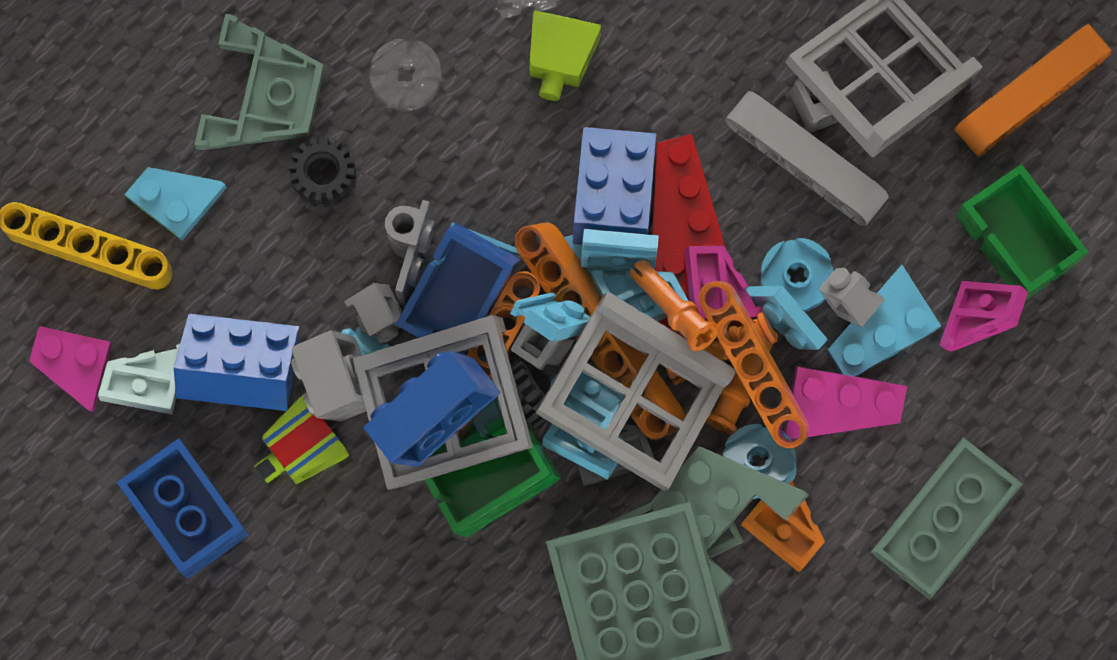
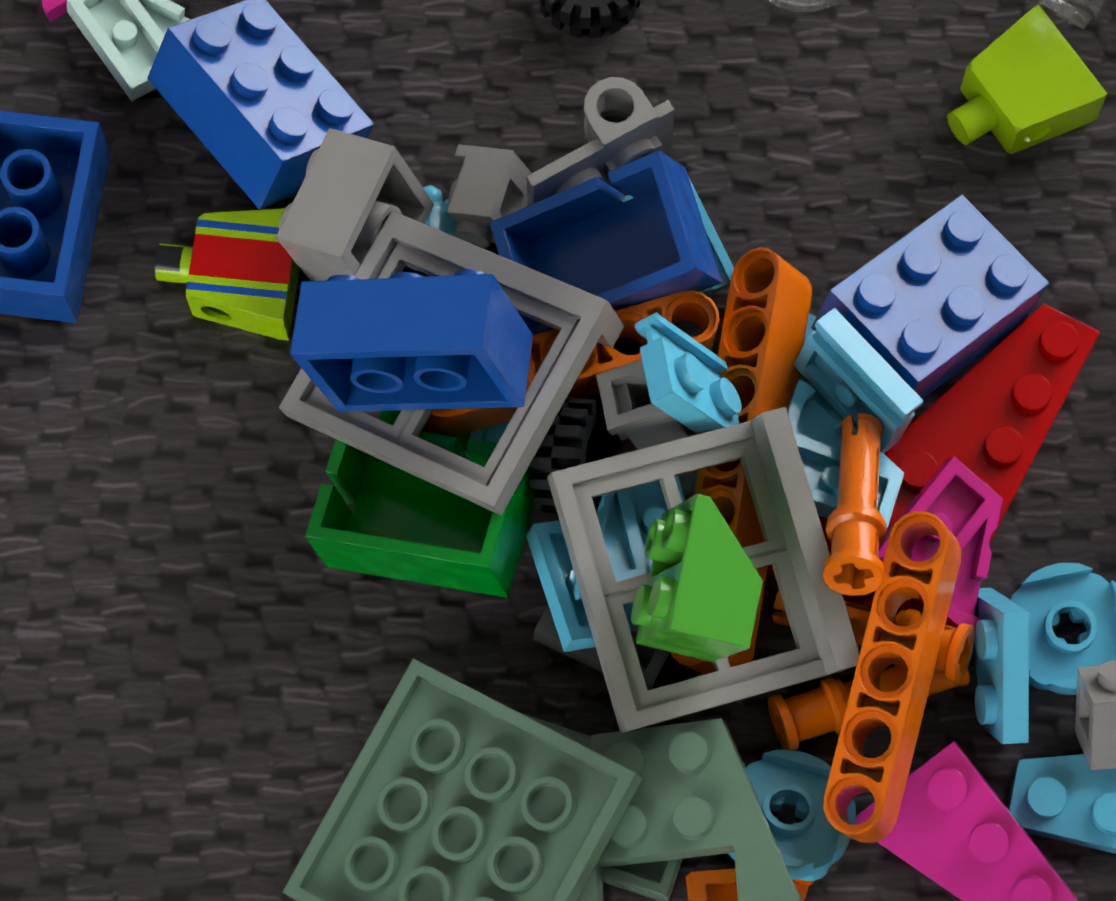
camera: 45 degrees right, 5 degrees down
(645, 401) = (699, 585): none -> bright green slope

